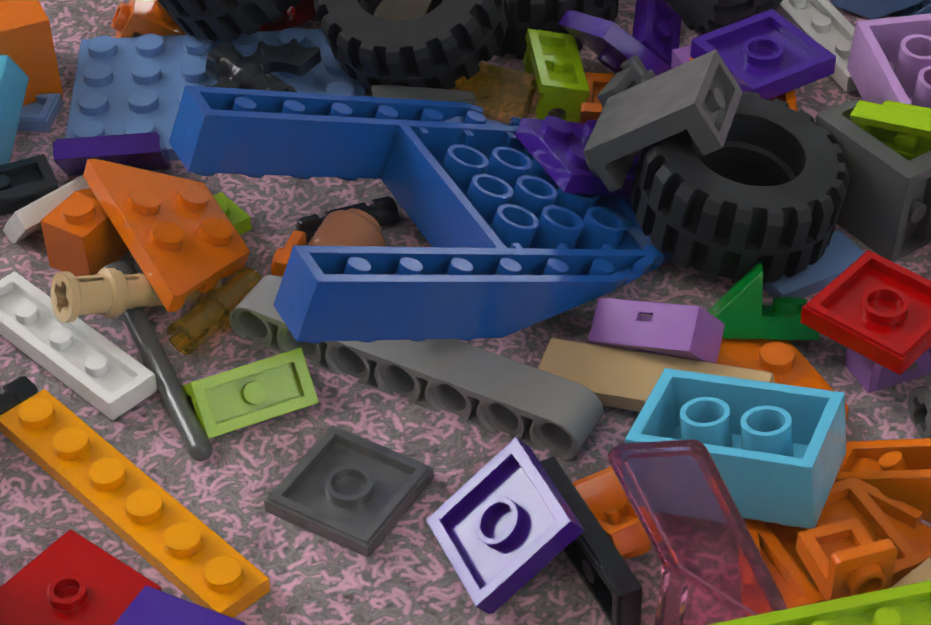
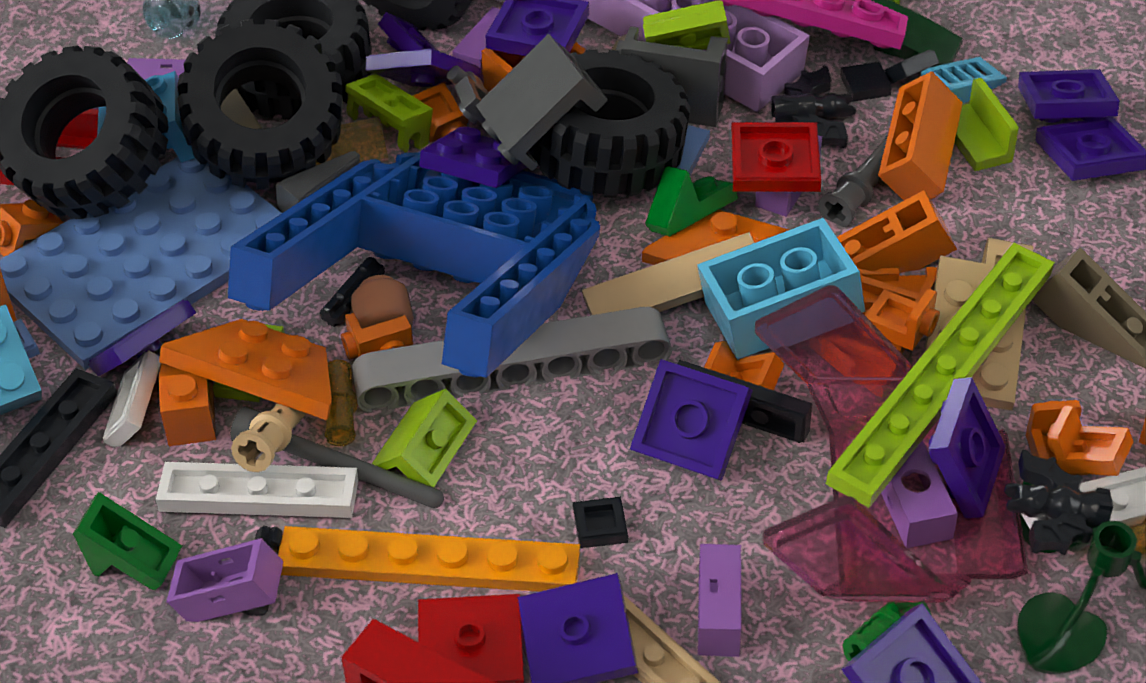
camera: 40 degrees left, 5 degrees up
(252, 71) = (175, 226): black animal -> none
(318, 572) = (600, 522): none -> black tile
(349, 490) = (559, 462): flat silver tile -> none
(671, 331) = (650, 246): medium lavender piece -> none

